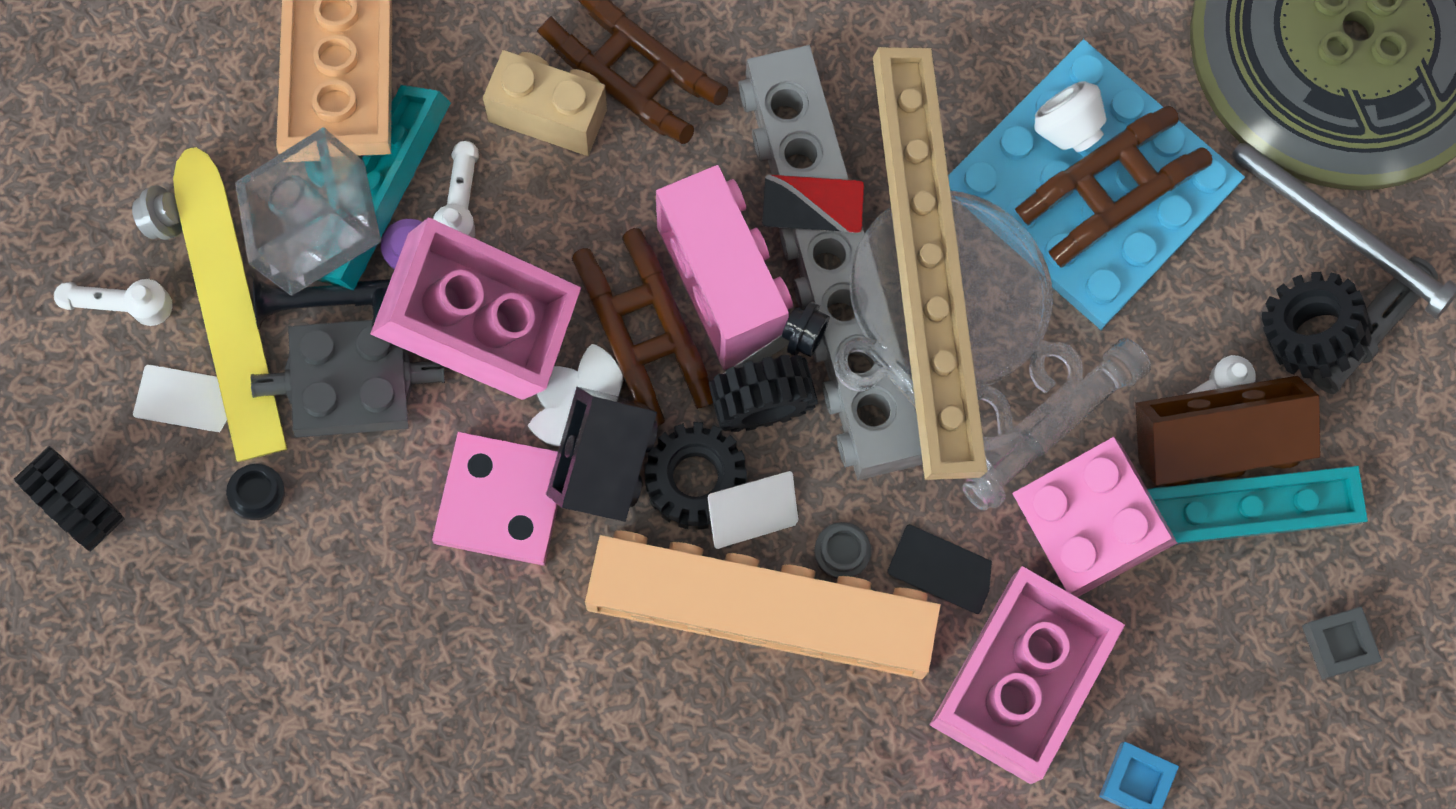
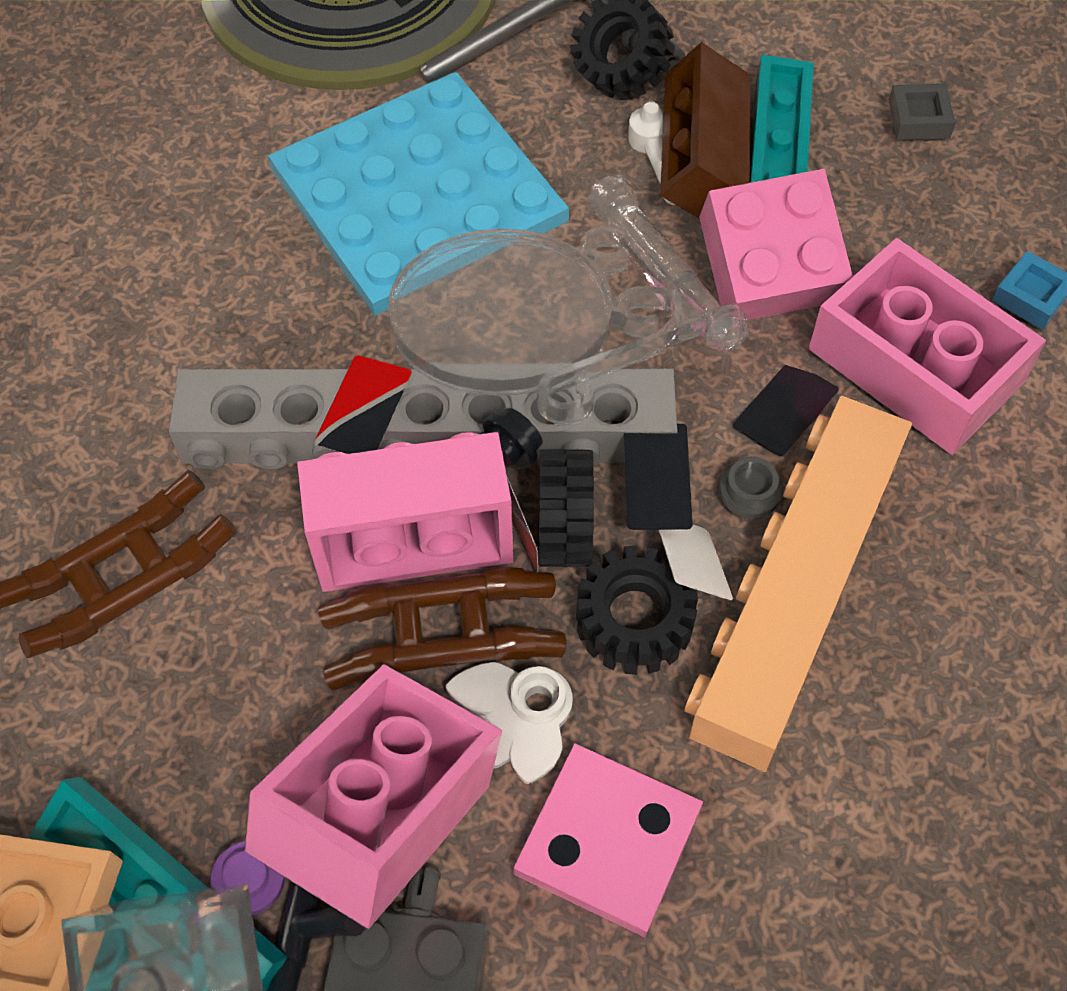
camera: 70 degrees left, 15 degrees down
(456, 211) = (226, 810): white piece -> none
(546, 101) = (127, 663): tan brick -> none
(602, 454) = (596, 692): black brick -> none
(812, 464) = (658, 480): none -> black sticker
(929, 265) = (473, 303): tan plate -> none
(1072, 117) = (354, 162): white cone -> none
(1106, 211) = (423, 173): reddish brown piece -> none

